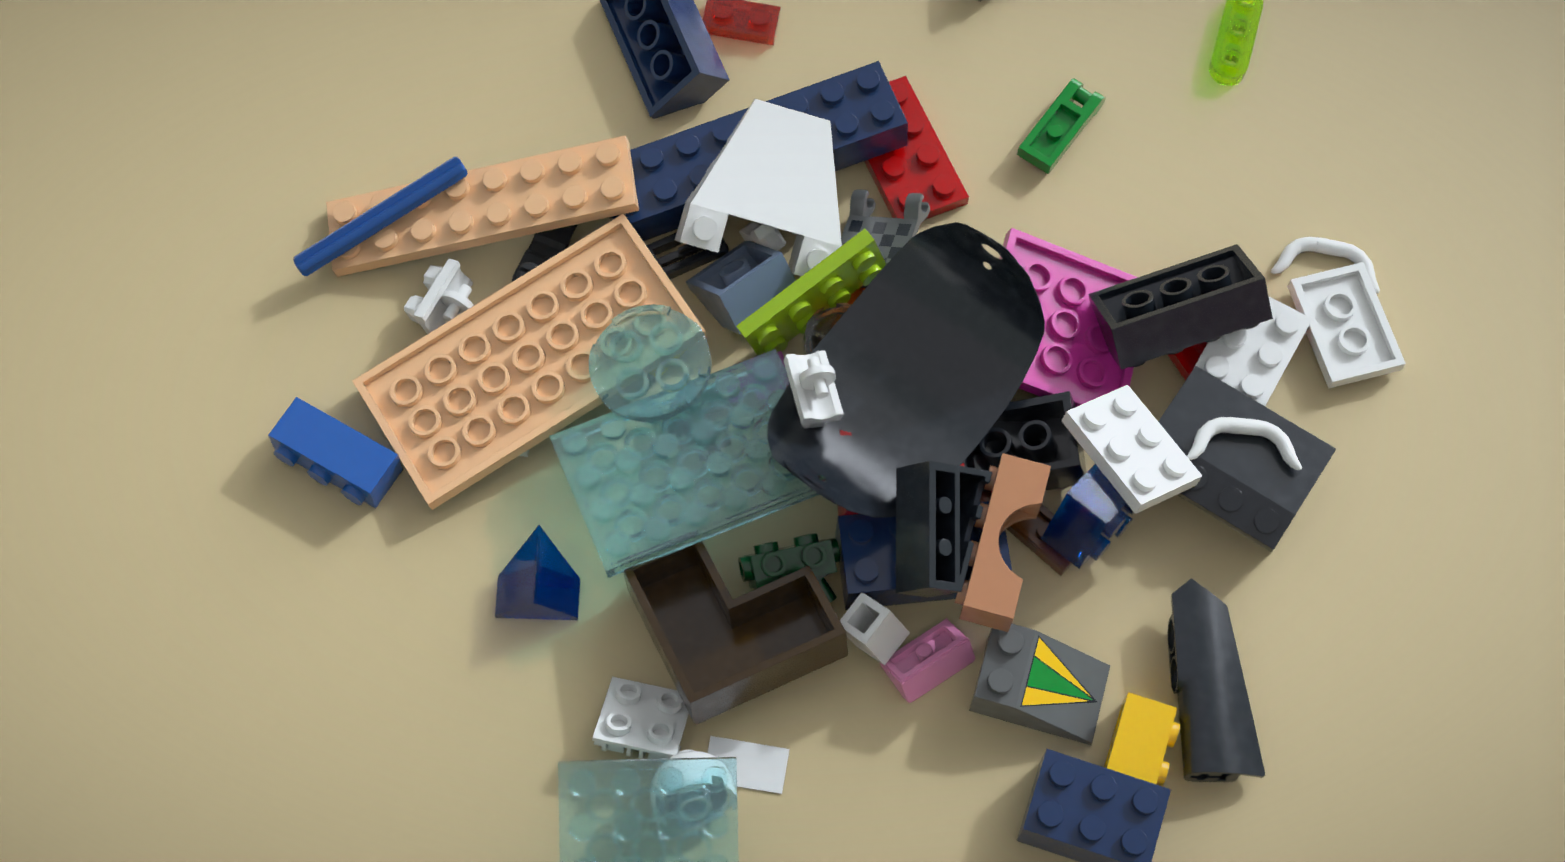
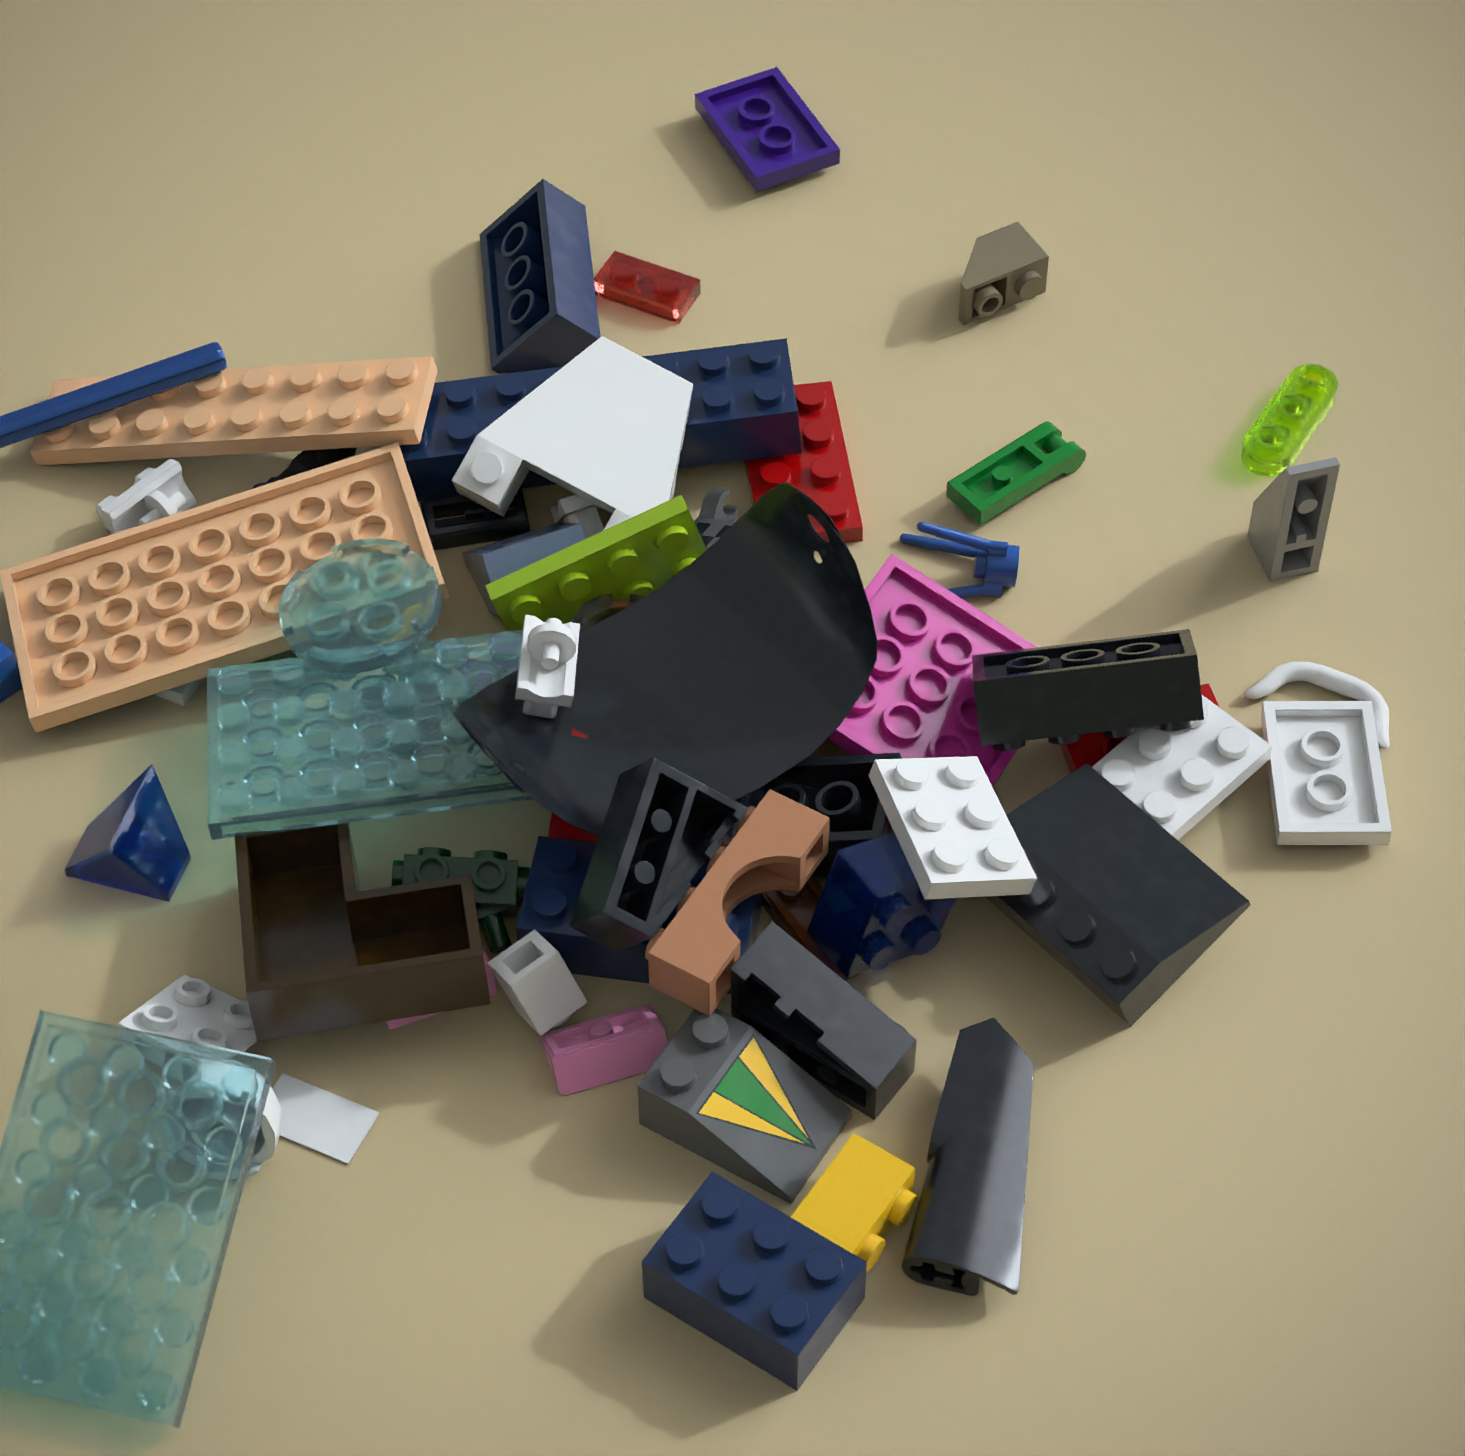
camera: 20 degrees right, 15 degrees down
(1068, 206) = (993, 561): none -> blue plant
(1078, 612) = (821, 1022): none -> black wedge
(1245, 427) = (1122, 842): white animal -> none
(1273, 132) = (1293, 519): none -> light grey slope

